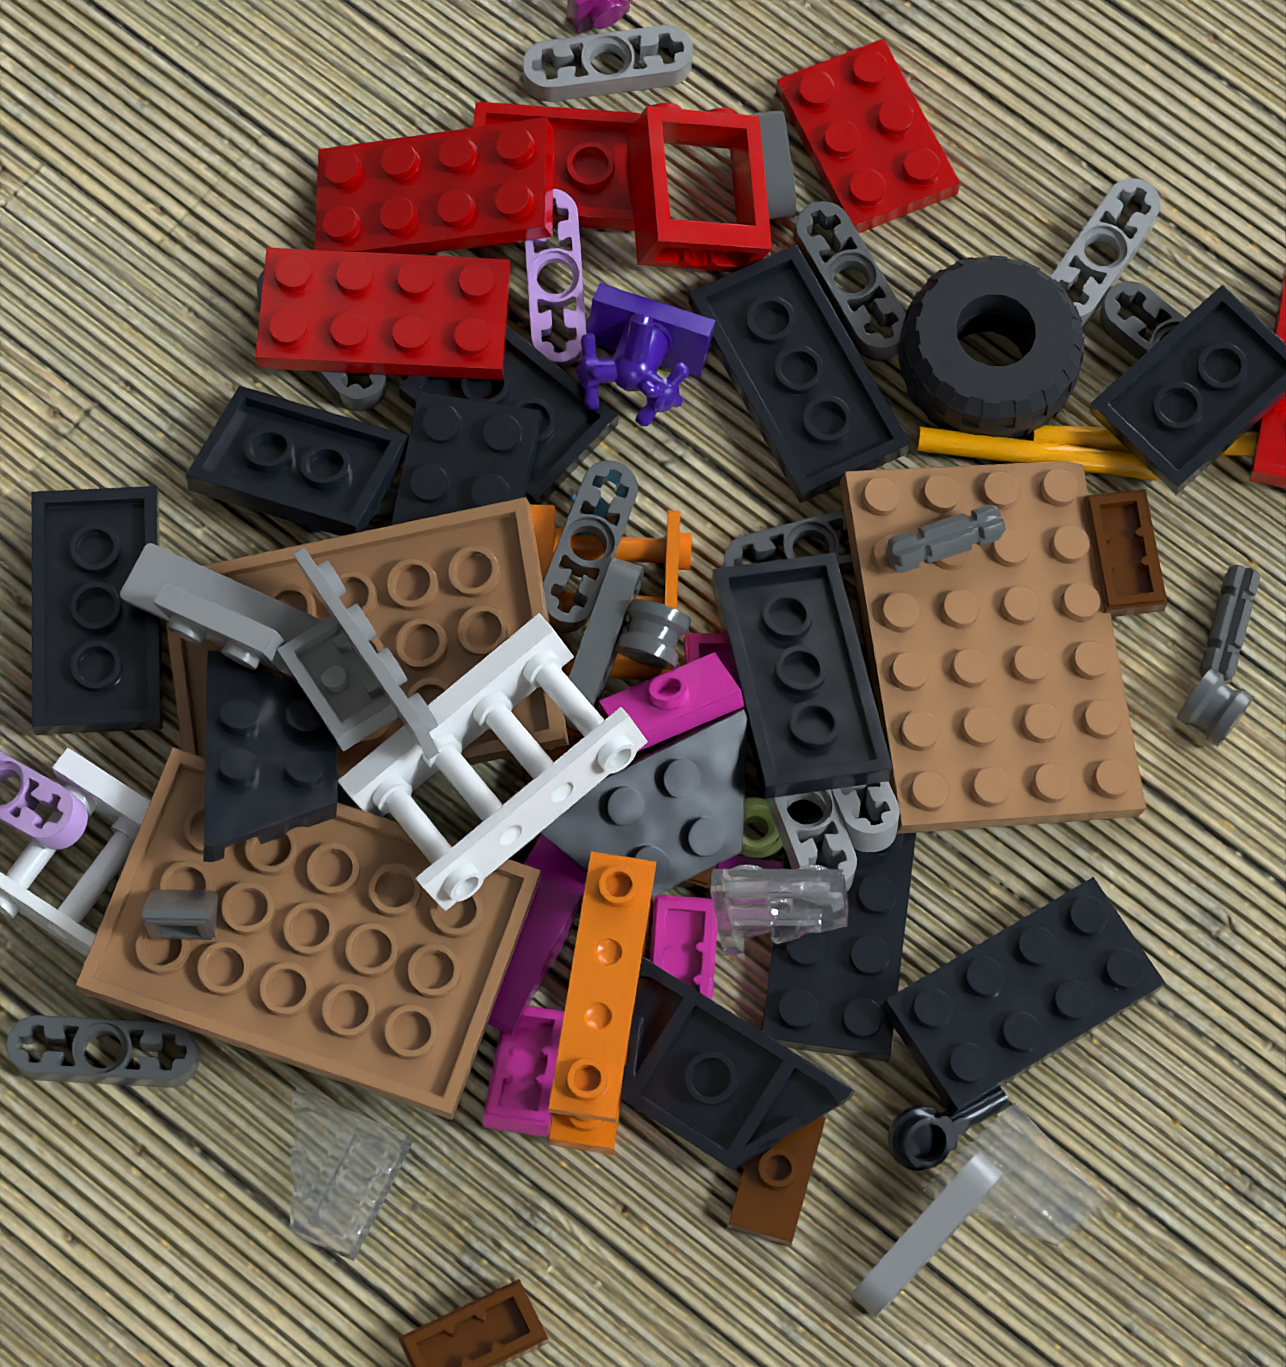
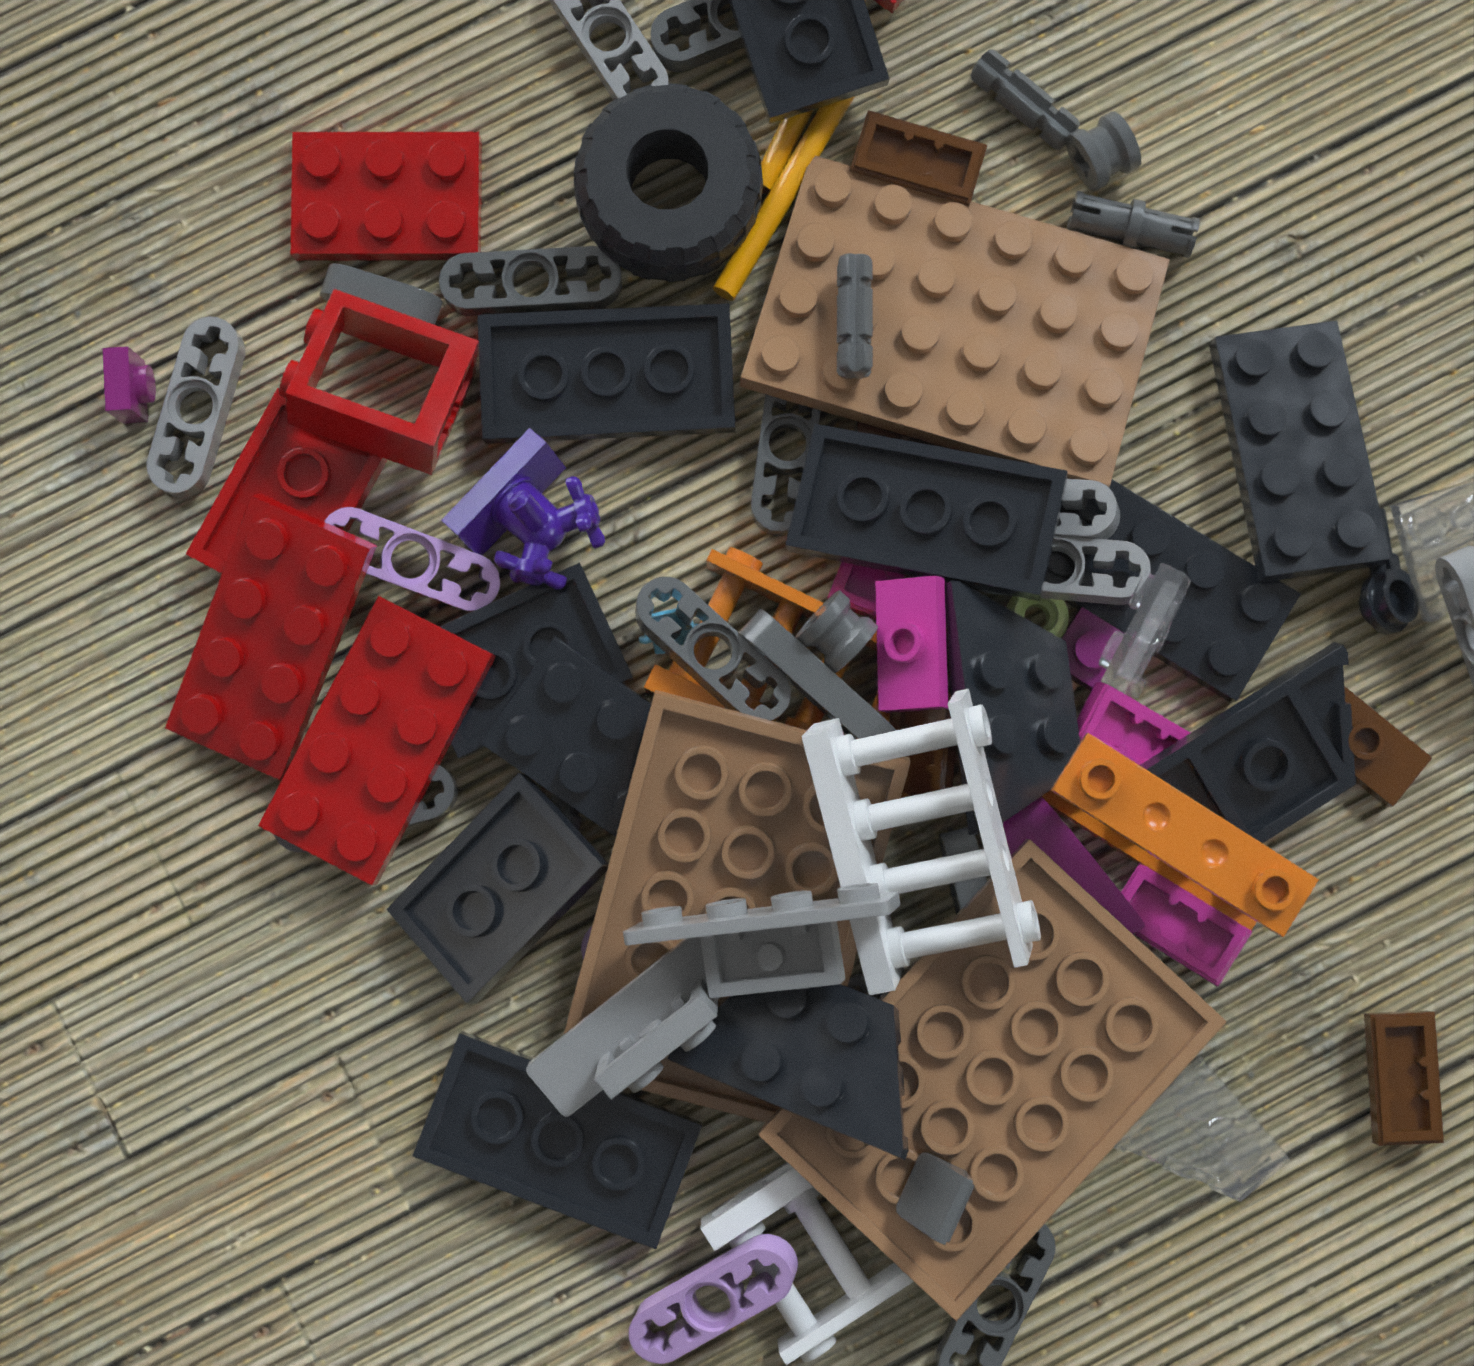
camera: 65 degrees left, 15 degrees up
(1163, 765) = (1133, 224): none -> dark grey pin

